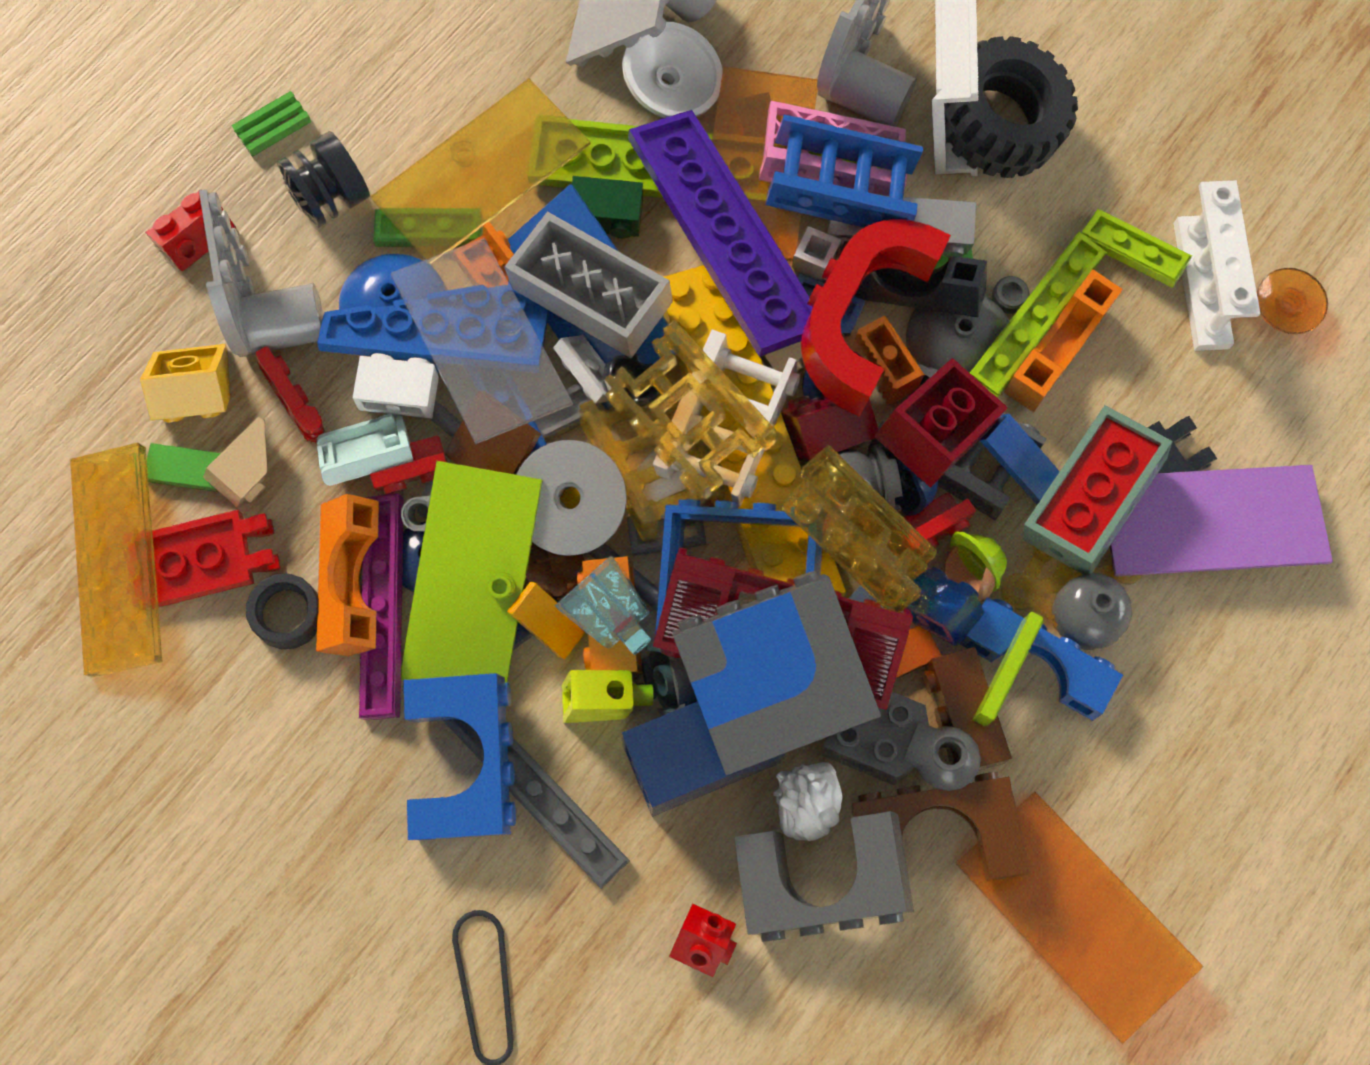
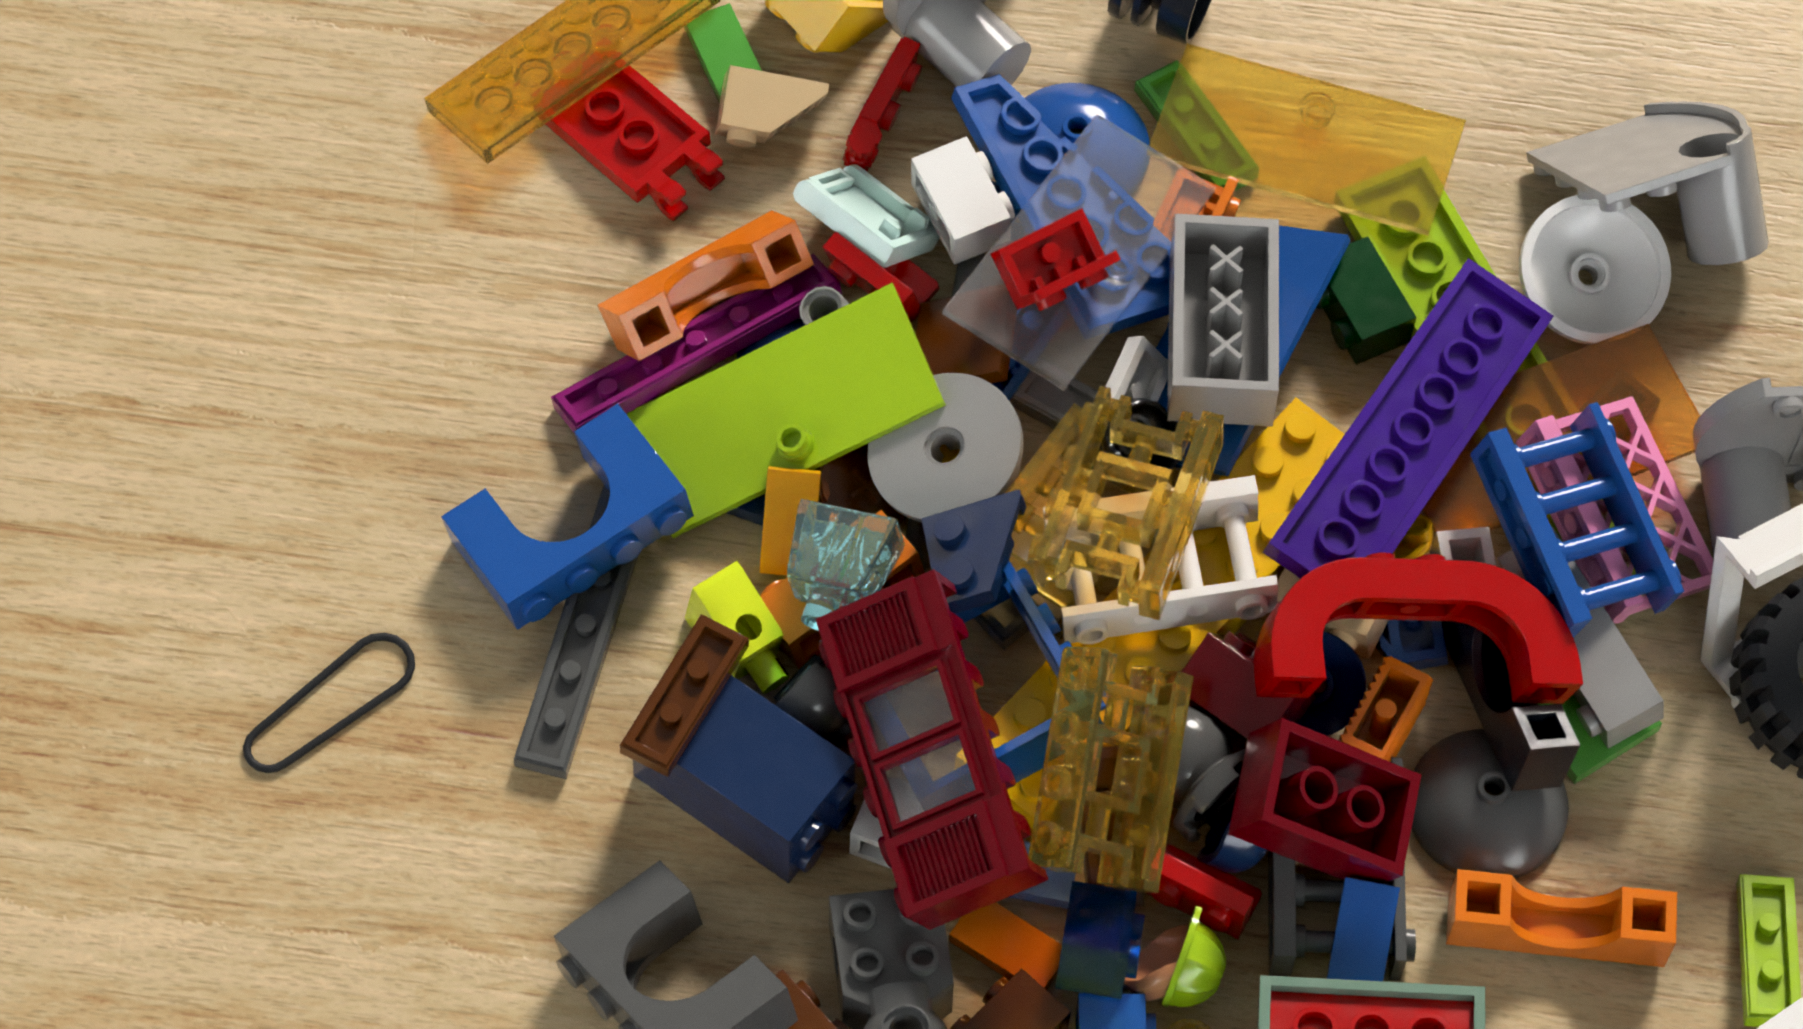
camera: 60 degrees right, 10 degrees down
(263, 592) = (617, 217): black tyre -> none
(488, 356) = (1051, 260): none -> red bracket
(650, 759) = (684, 695): none -> reddish brown tile
(653, 522) = (973, 546): none -> dark blue wing
(704, 941) = (519, 895): red brick -> none
(775, 672) = (860, 749): dark grey panel -> none
(808, 801) = (750, 915): white hair -> none
(1010, 294) = (1592, 834): dark grey tile -> none
(1037, 314) = (1577, 869): lime tile -> none

